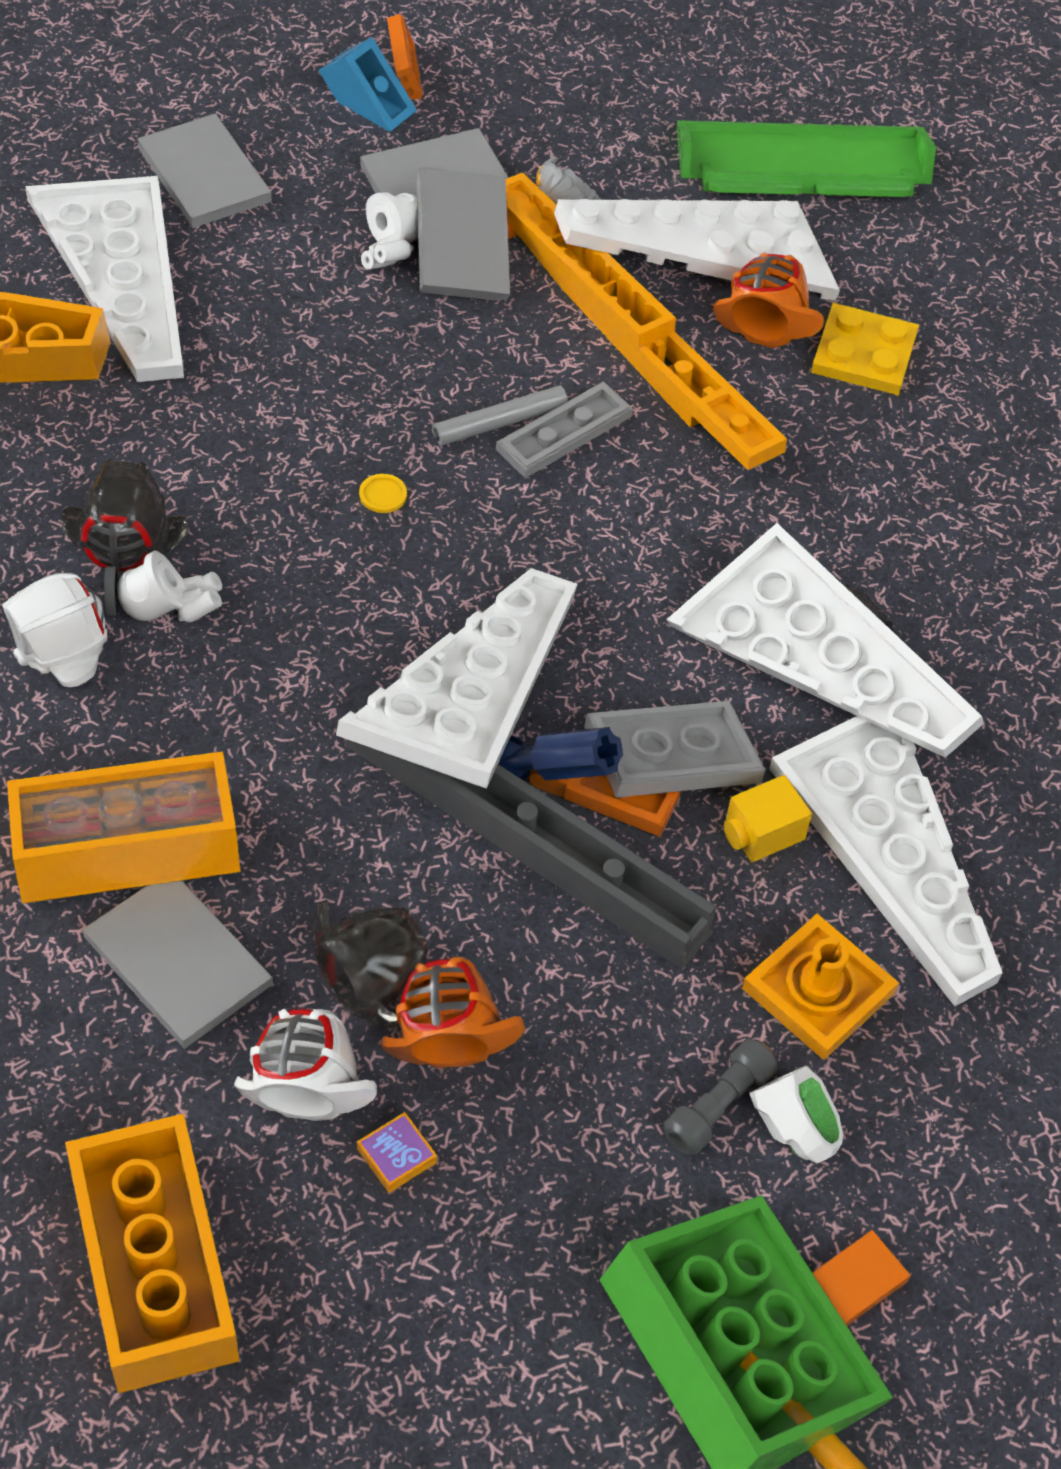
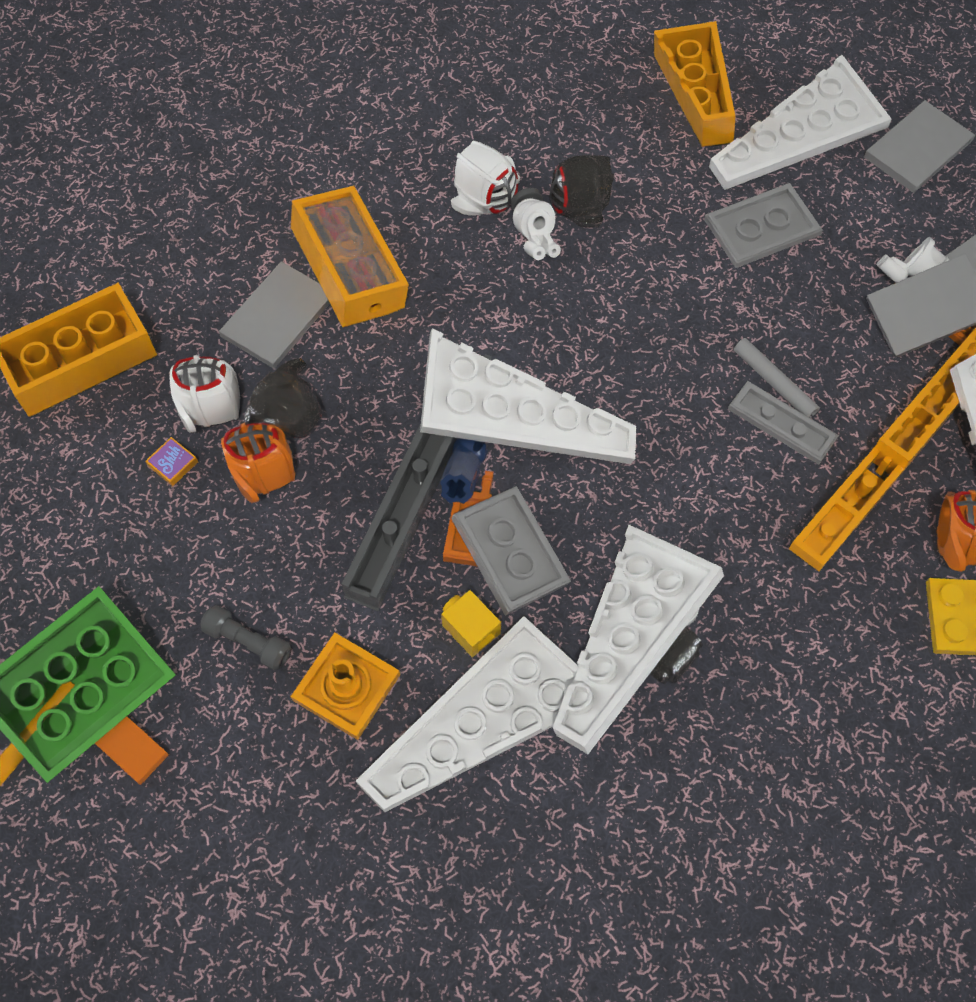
camera: 80 degrees right, 10 degrees up
(259, 357) = (763, 225): none -> light grey tile
(382, 493) = (675, 327): yellow piece -> none
(800, 1114) = (240, 688): white rock -> none

